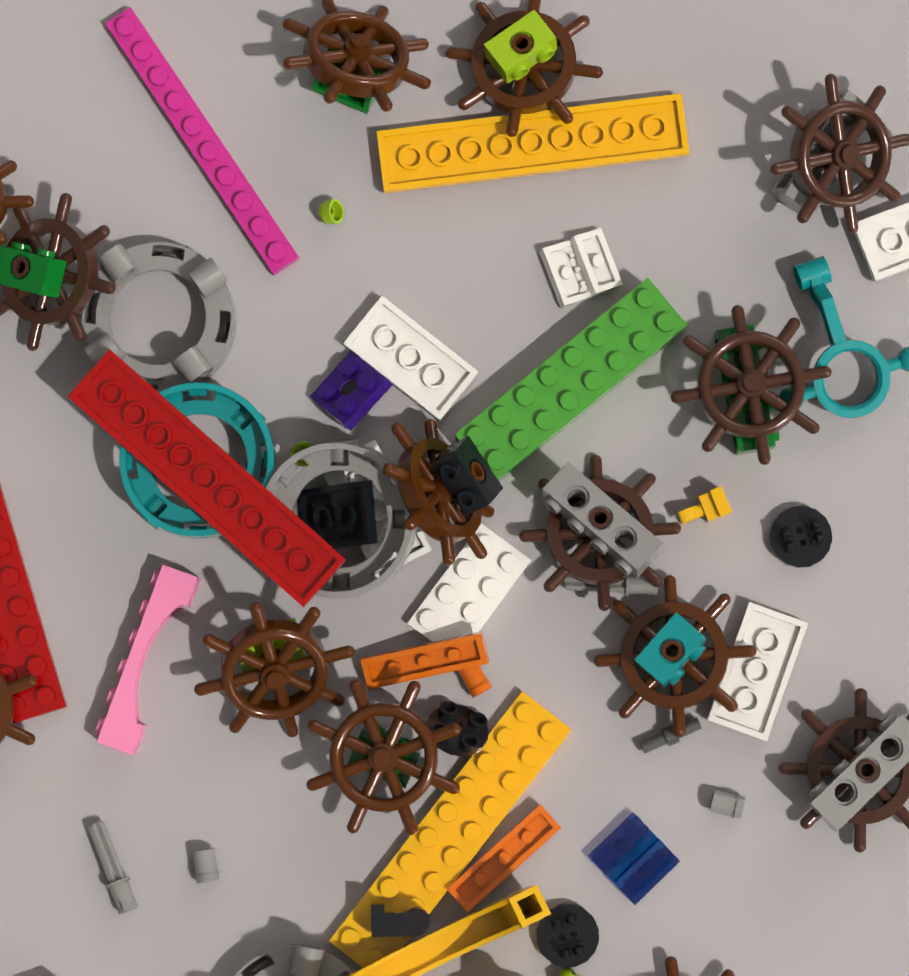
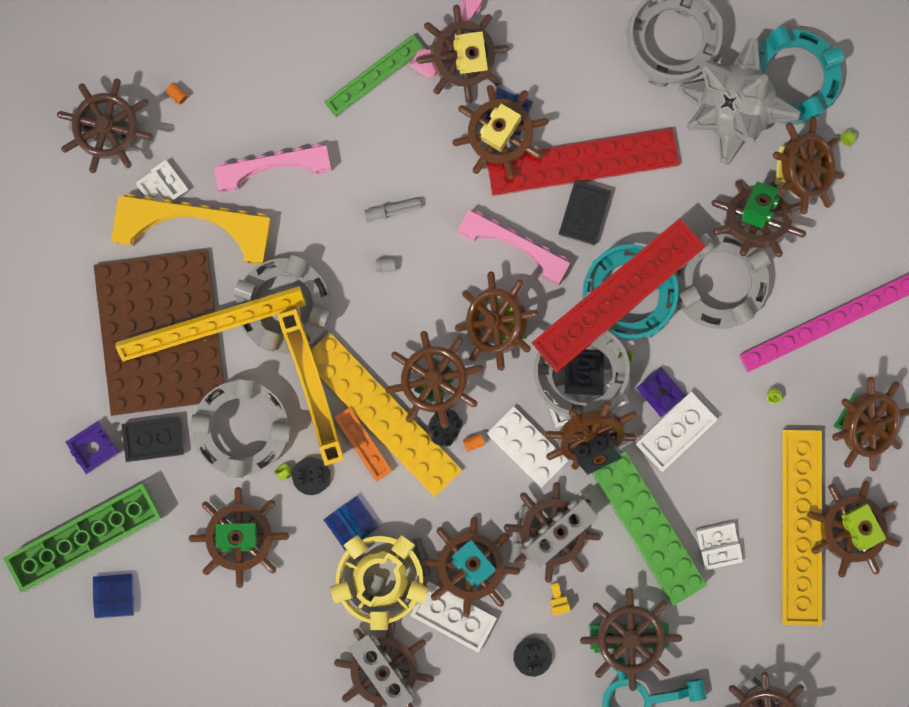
camera: 95 degrees right, 0 degrees up
(76, 552) = (584, 213): none -> black plate
(394, 924) = (333, 374): black leg -> none
(425, 660) = (489, 413): orange plate -> none
(780, 788) = (342, 593): none -> light yellow piece

